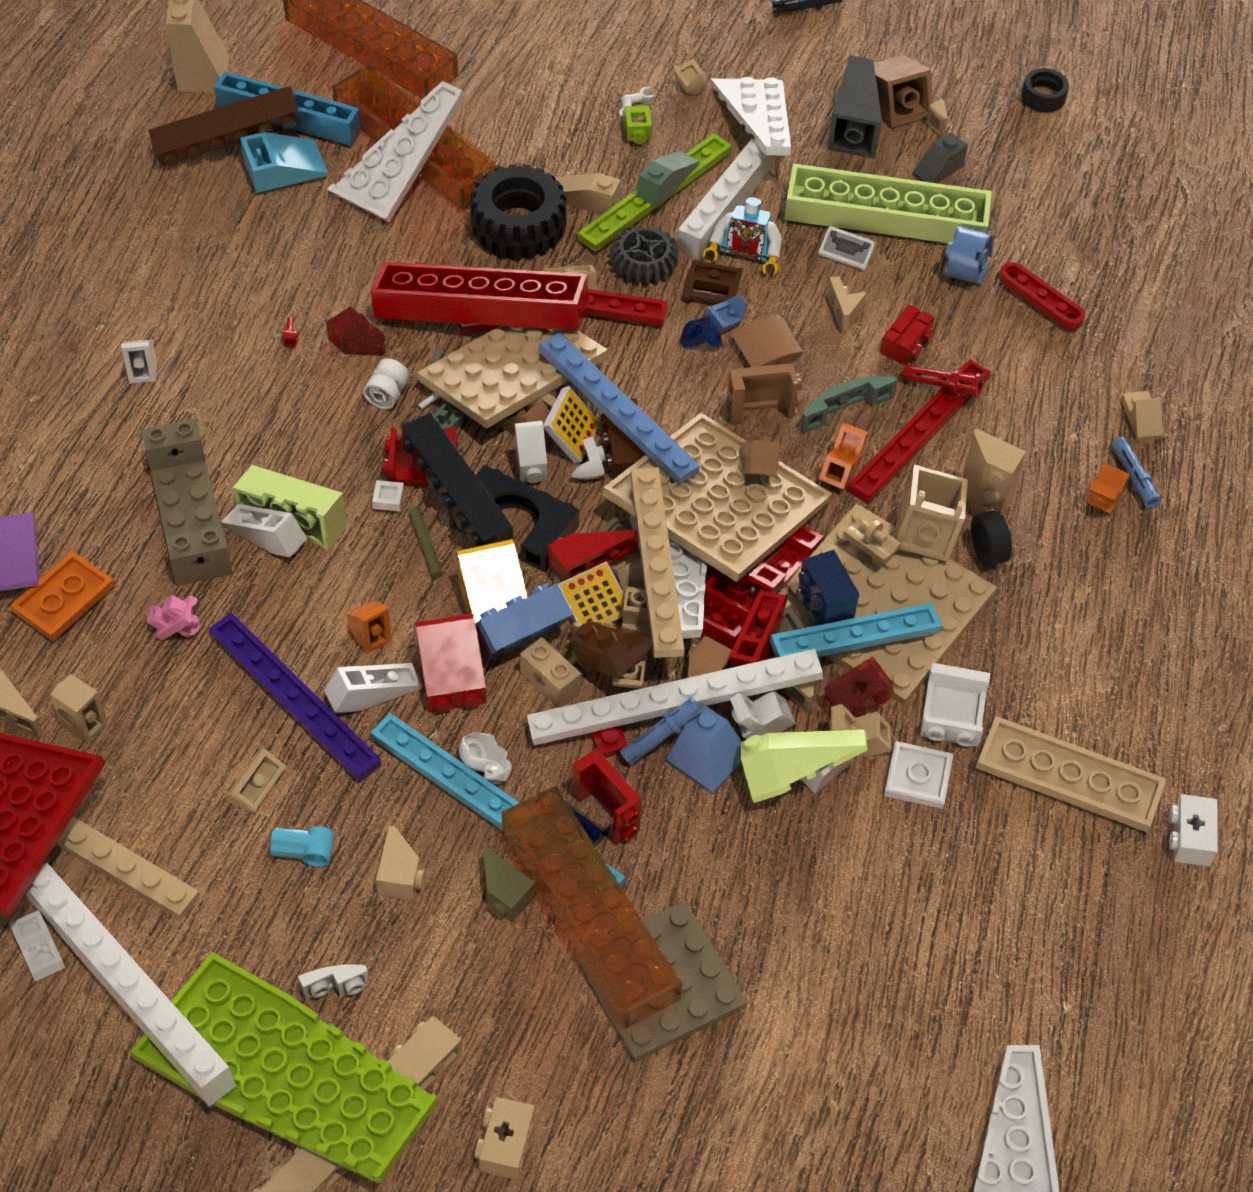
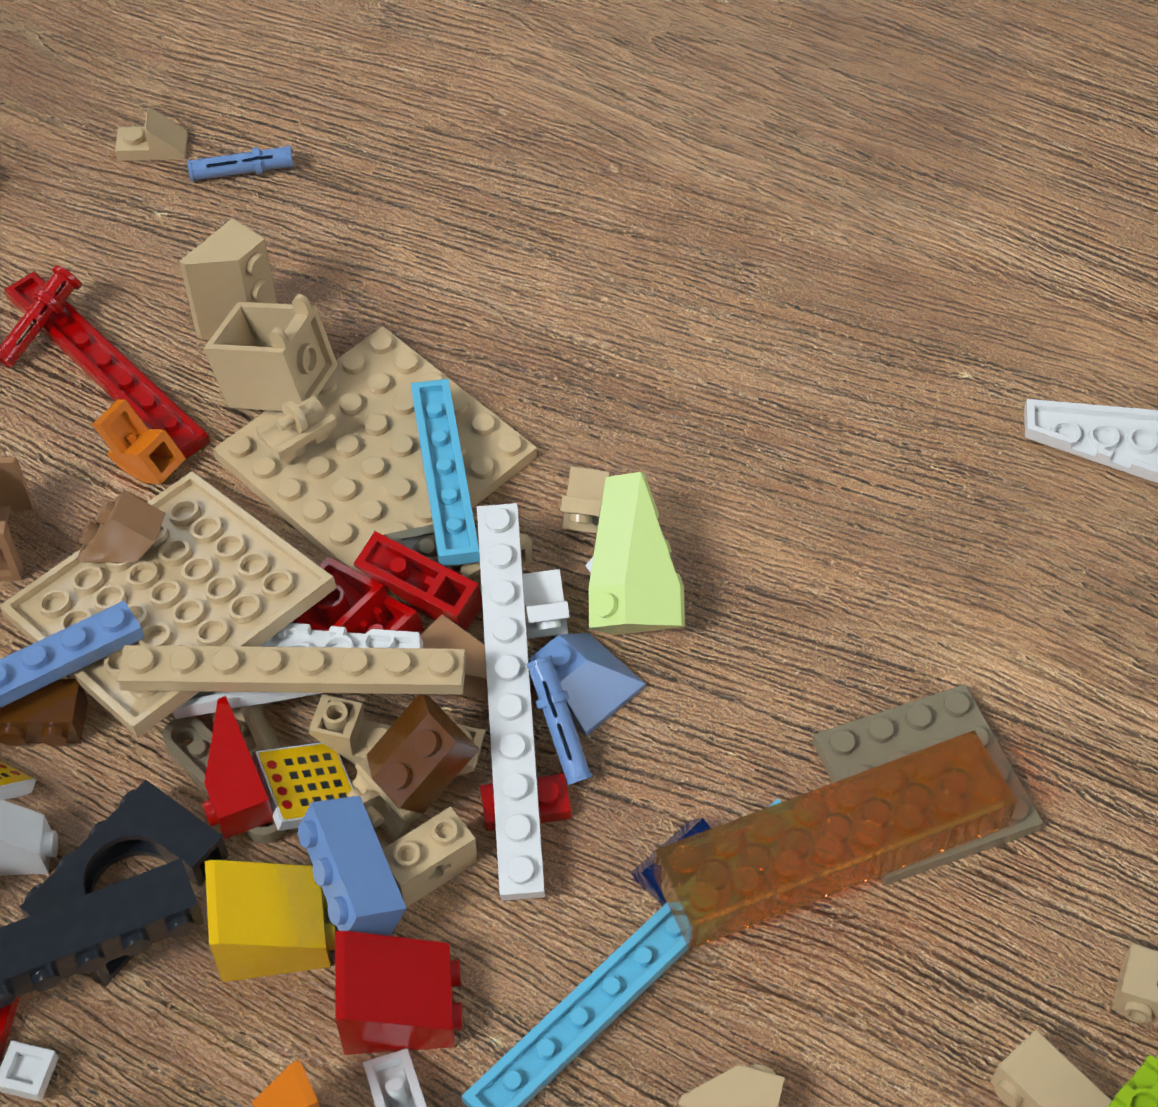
camera: 80 degrees left, 0 degrees up
(426, 542) = (131, 1022): olive bar -> none
(483, 754) = (561, 961): white hair -> none
(506, 887) = (781, 958): olive slope -> none
(594, 467) = (47, 754): white plate -> none
(597, 776) = (656, 789): red panel -> none
(787, 561) = (328, 552): red slope -> none
(826, 589) = (381, 483): dark blue brick -> none
(867, 678) = (525, 465): clear red brick -> none
(873, 389) = (23, 403): sand green slope -> none
(919, 774) = (648, 449): white tile -> none
(954, 705) = (554, 401): white panel -> none
(991, 538) = (328, 292): black tyre -> none
(1071, 774) = (664, 309): tan plate -> none
(1107, 488) = (262, 190): orange brick -> none
(1194, 830) = (756, 211): white brick -> none

